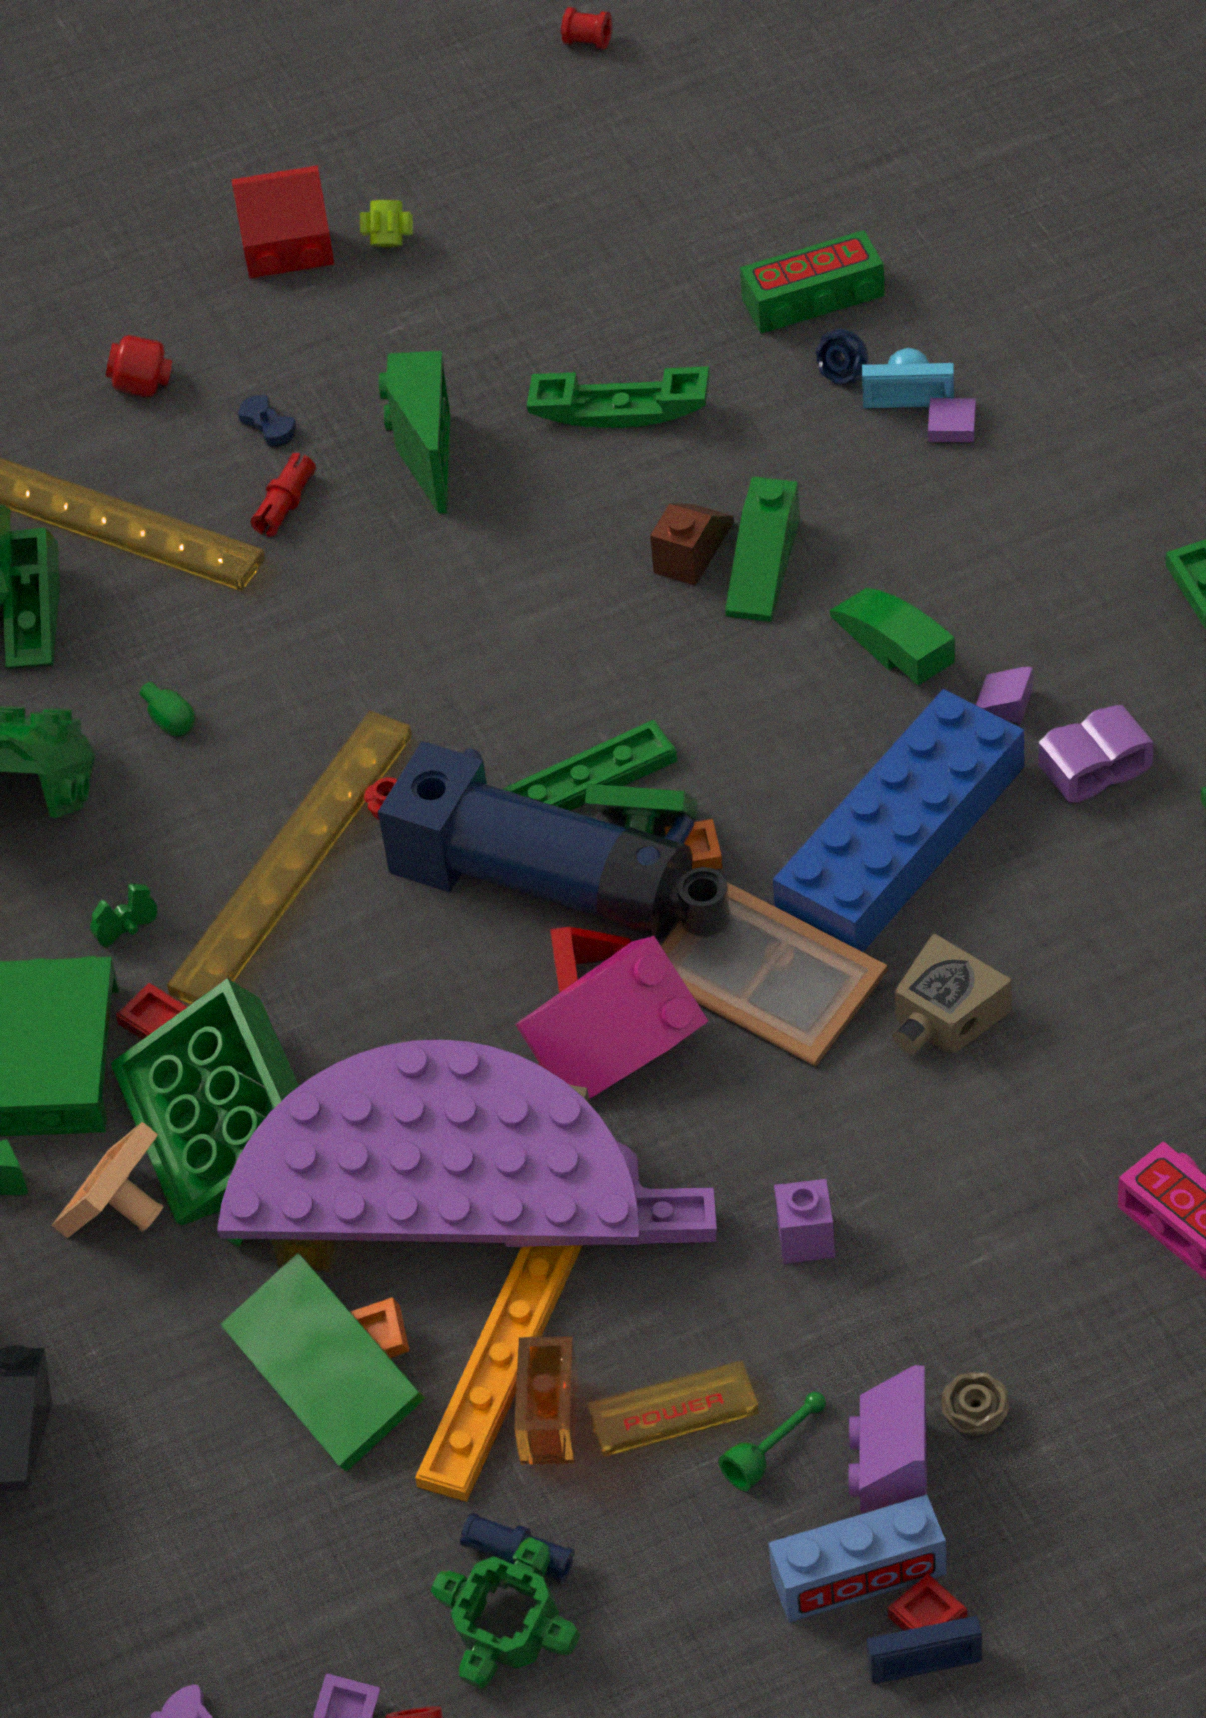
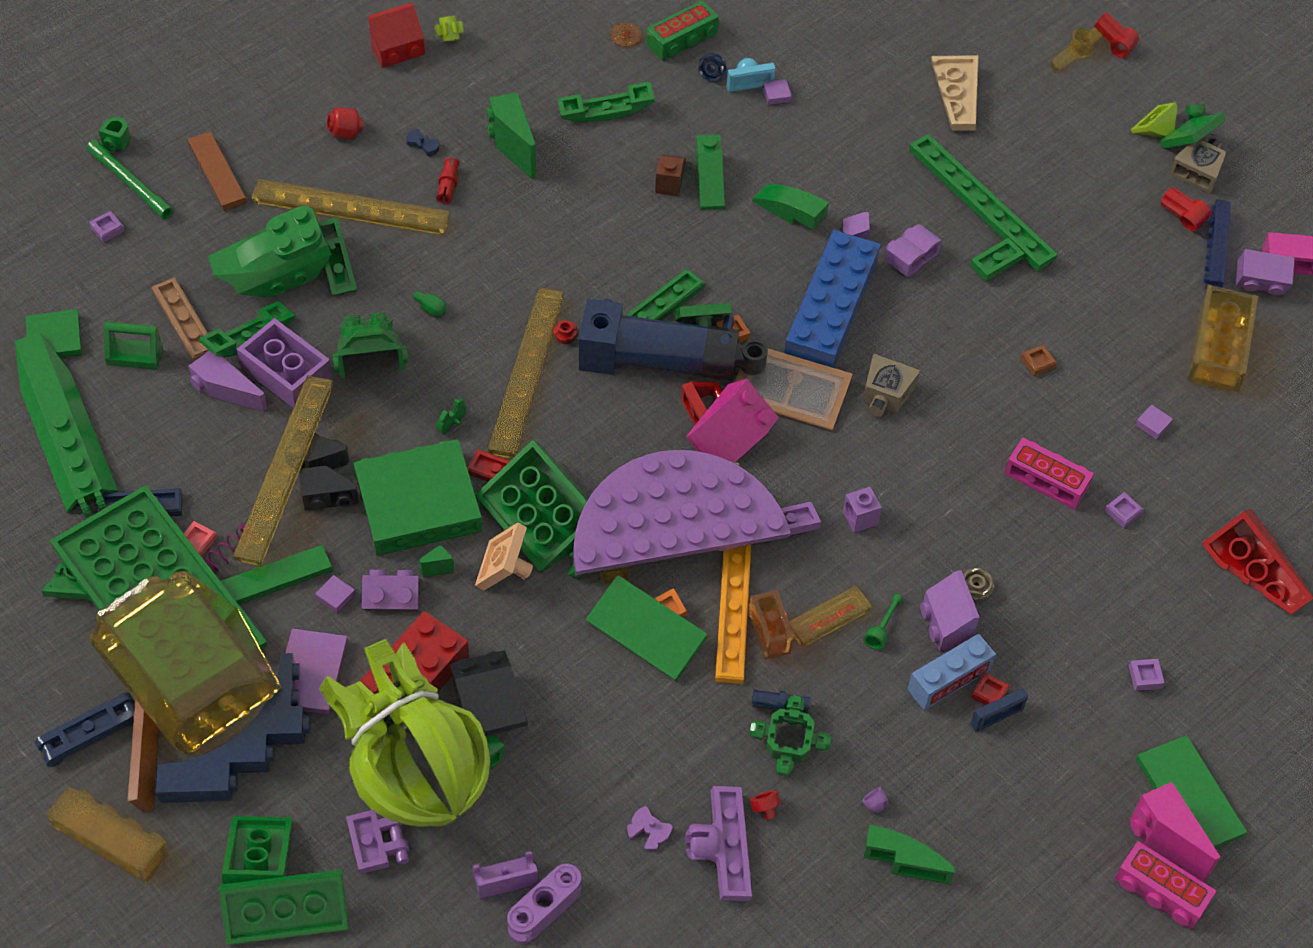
camera: 25 degrees left, 5 degrees up
(709, 276) = (625, 34): none -> clear orange piece

